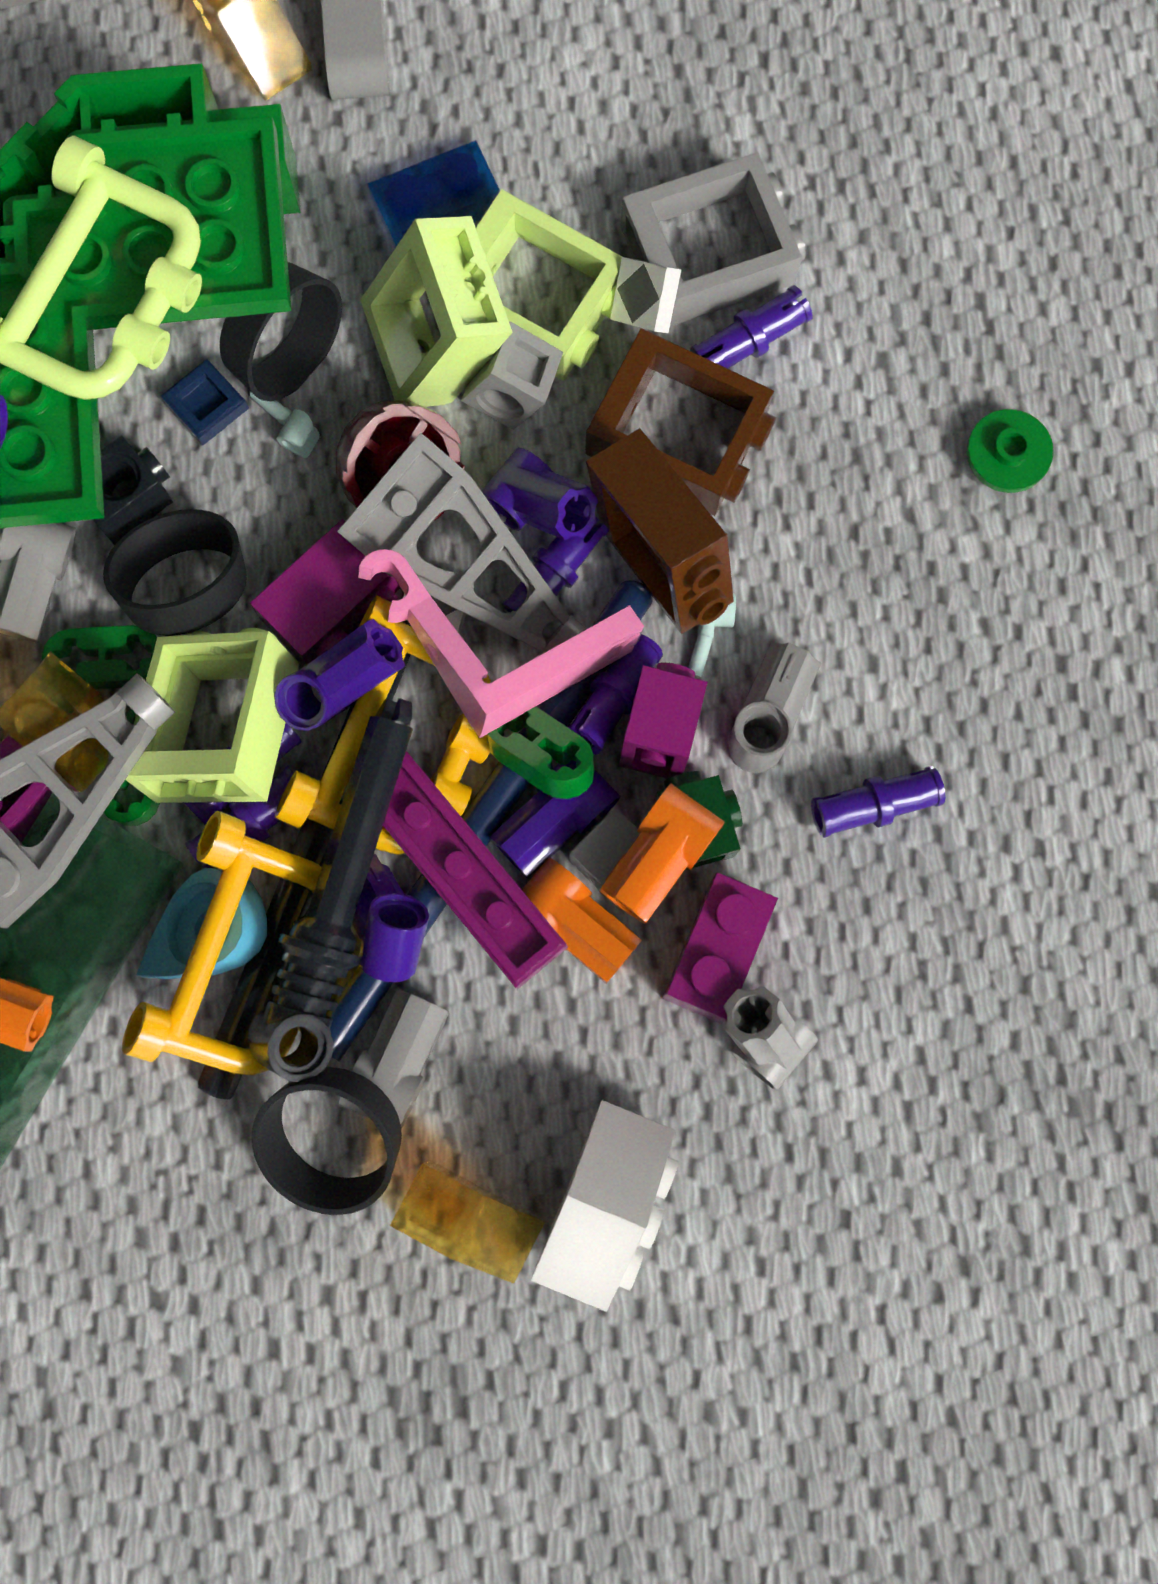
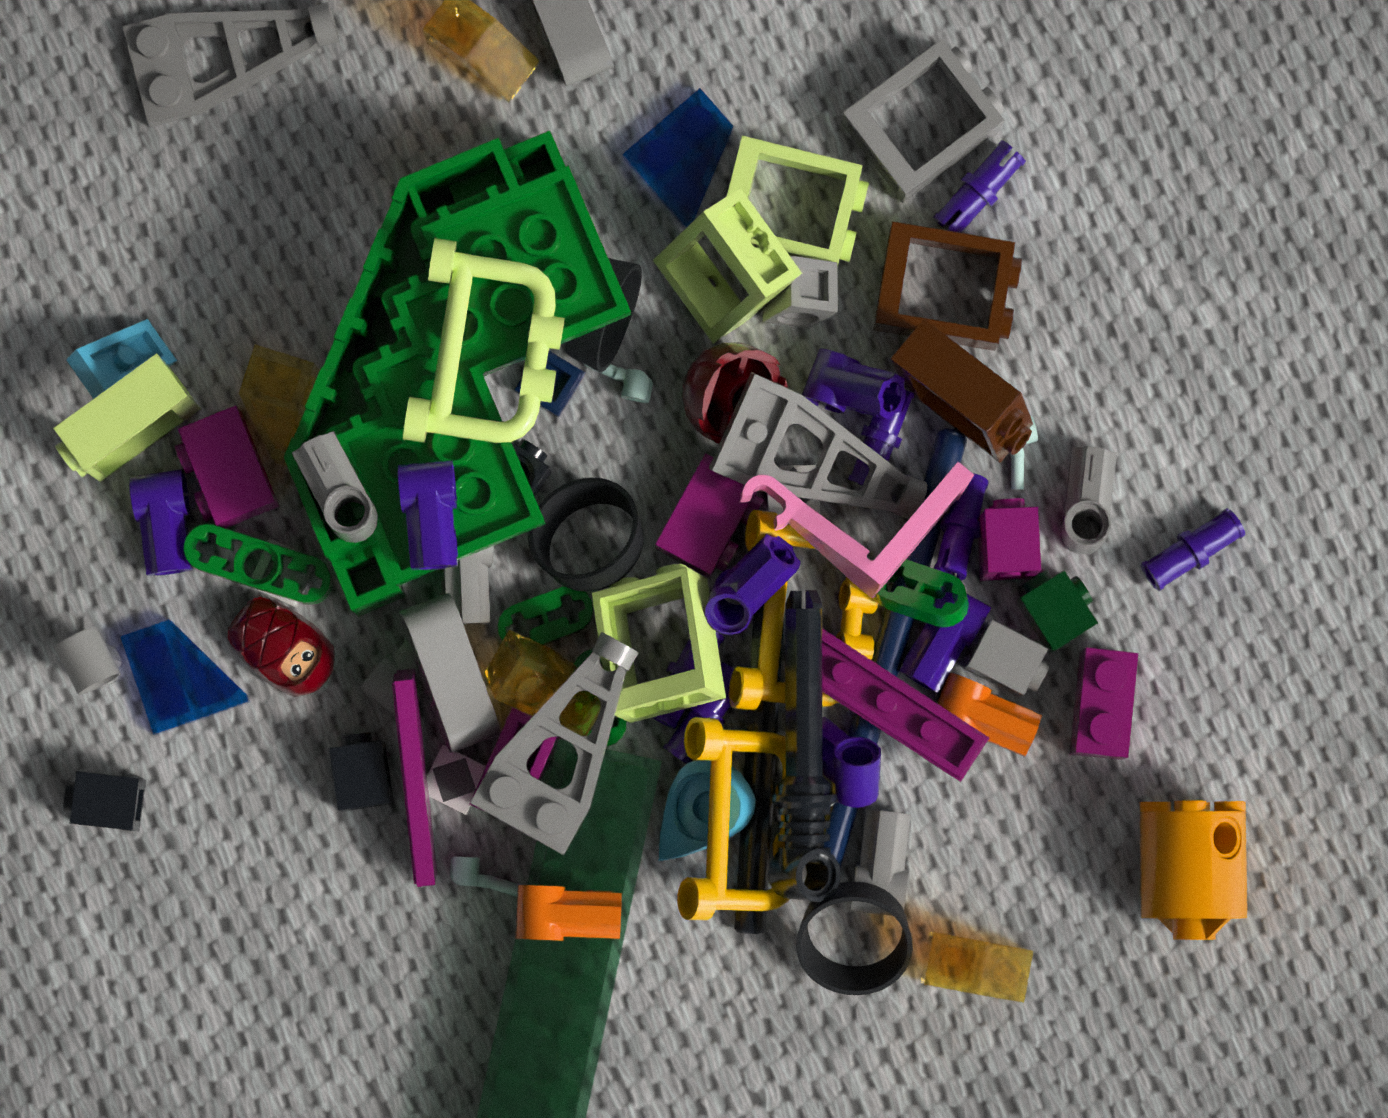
camera: 15 degrees left, 5 degrees up
(608, 1208) = (1078, 923): white brick -> none
(645, 294) = (887, 192): white tile -> none
(668, 842) = (1044, 635): orange piece -> none
(766, 1035) = (1160, 760): light grey piece -> none
(770, 1180) = (1193, 865): none -> light orange cylinder
(1009, 450) = (1218, 225): green piece -> none

